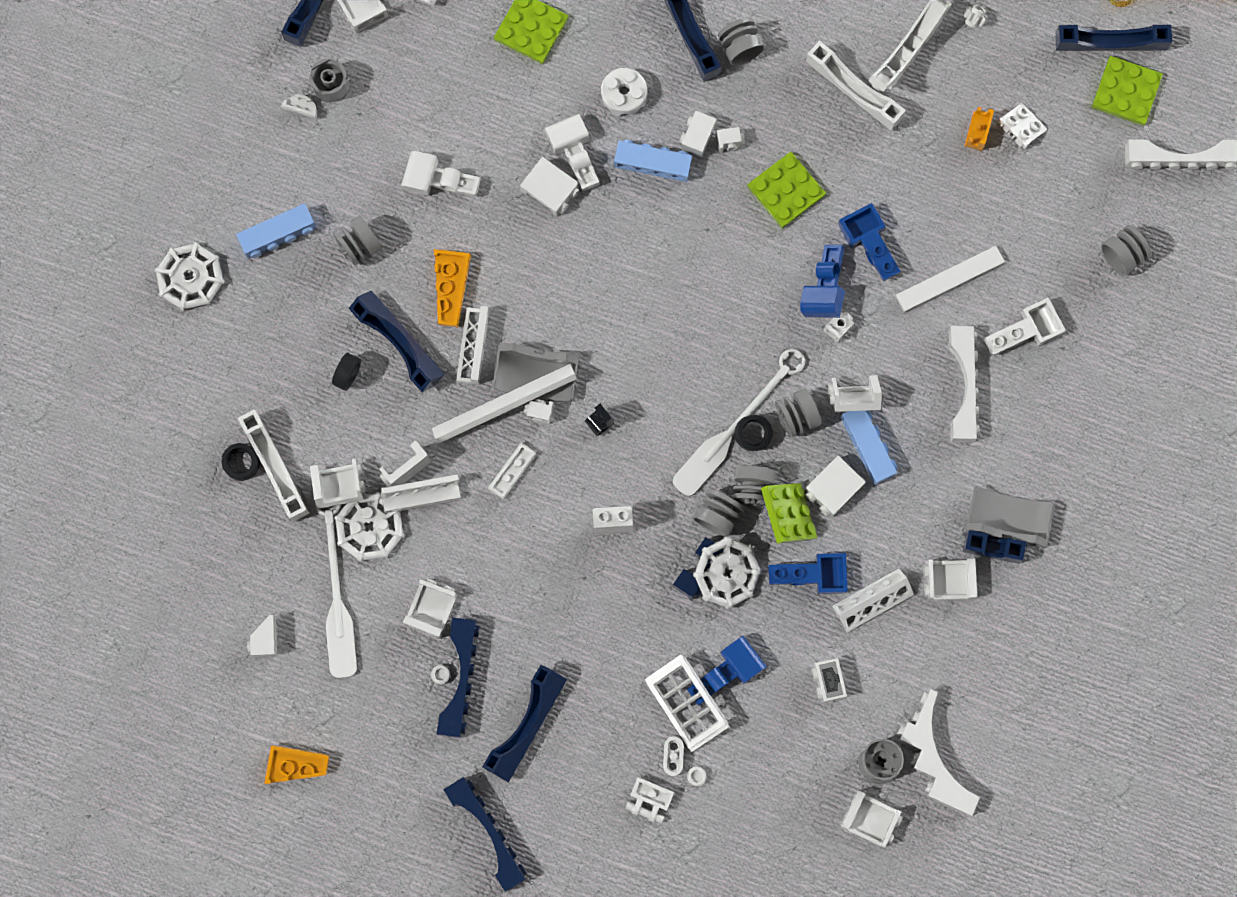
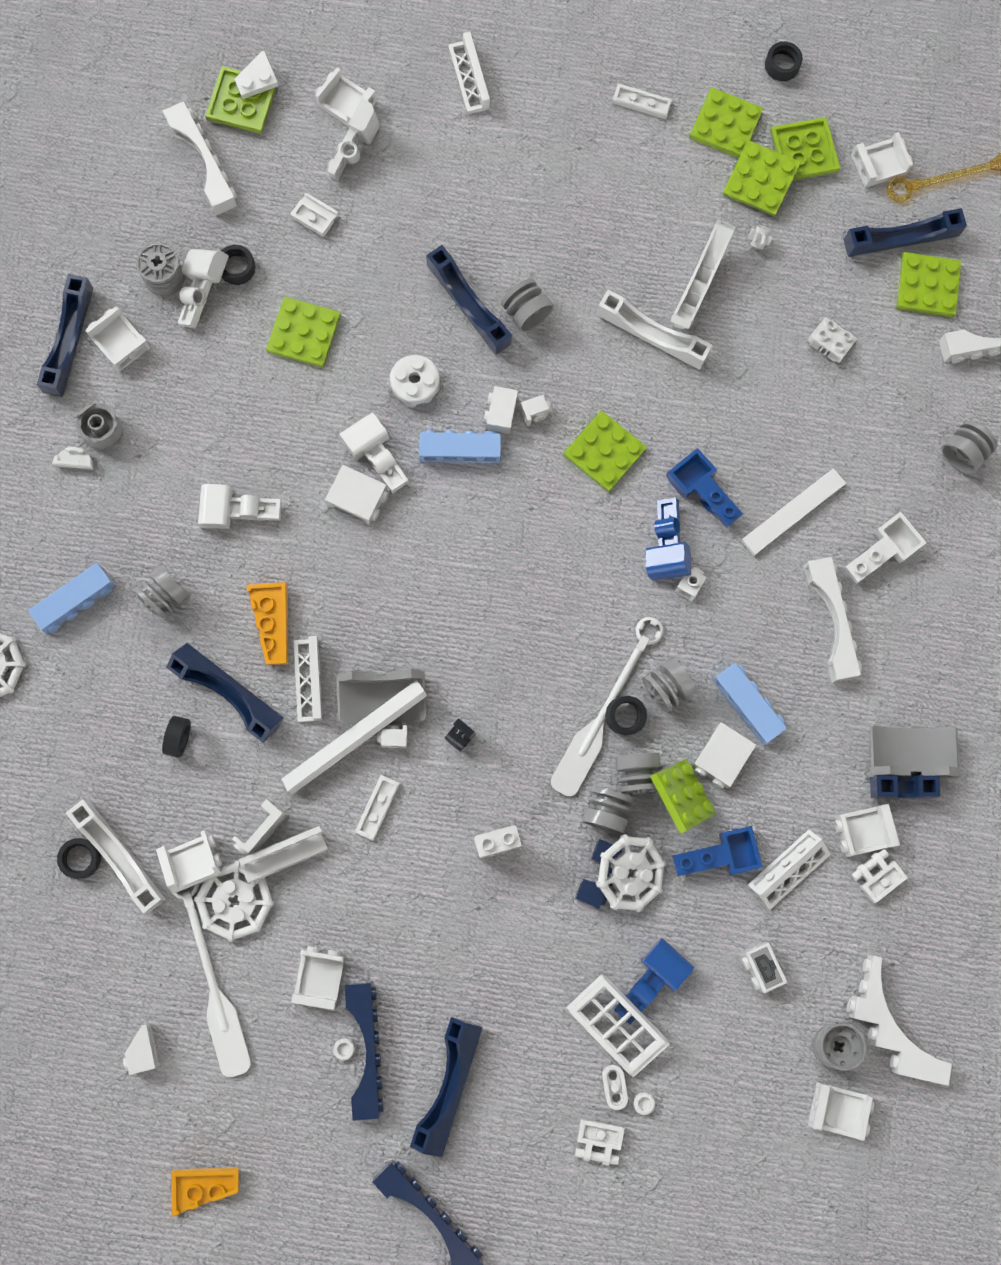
camera: 20 degrees left, 0 degrees up
(856, 397) = (726, 656): white panel -> none
(955, 628) = (882, 882): none -> white plate
(979, 129) = (789, 351): light orange hinge -> none

